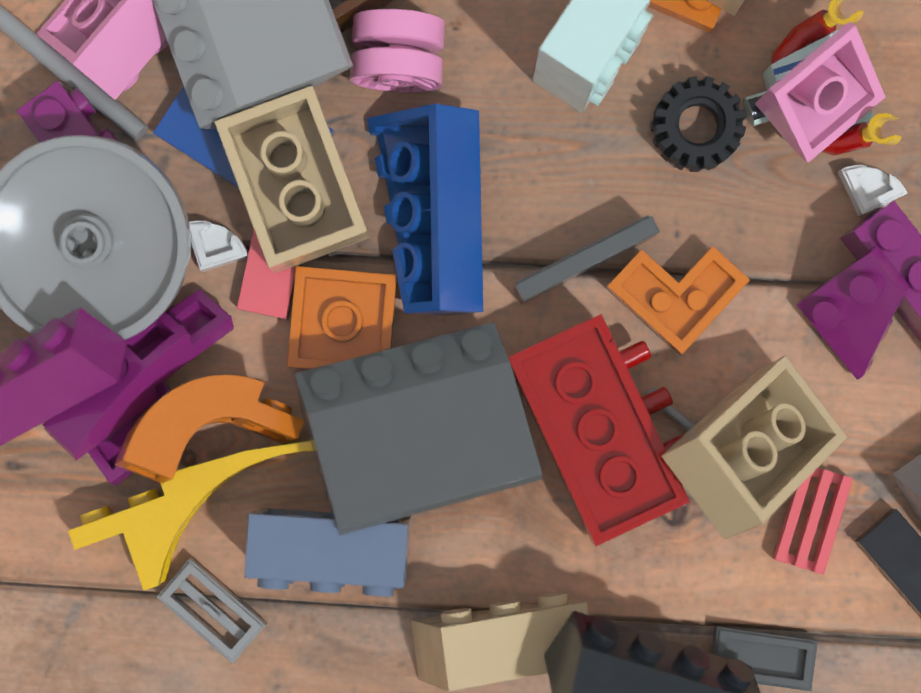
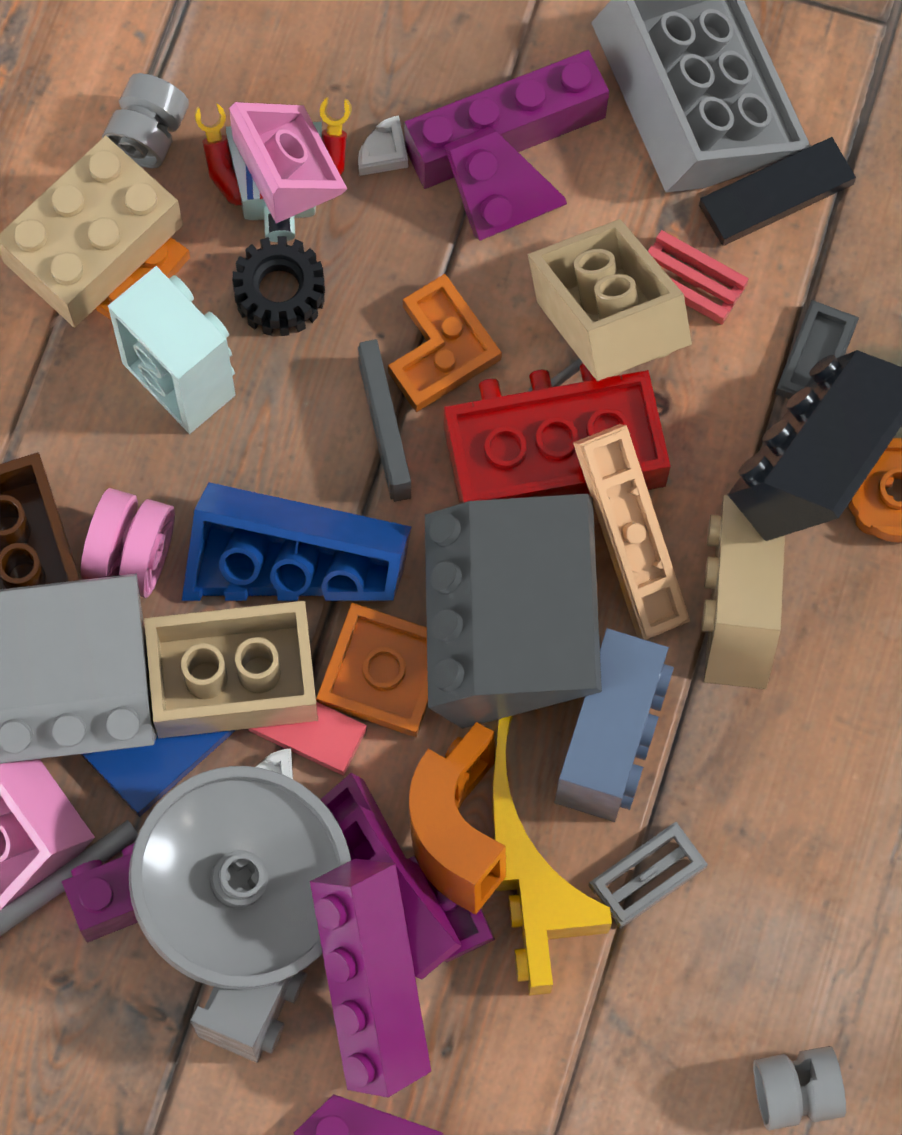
camera: 80 degrees left, 15 degrees down
(525, 522) = (631, 531): none -> light nougat plate

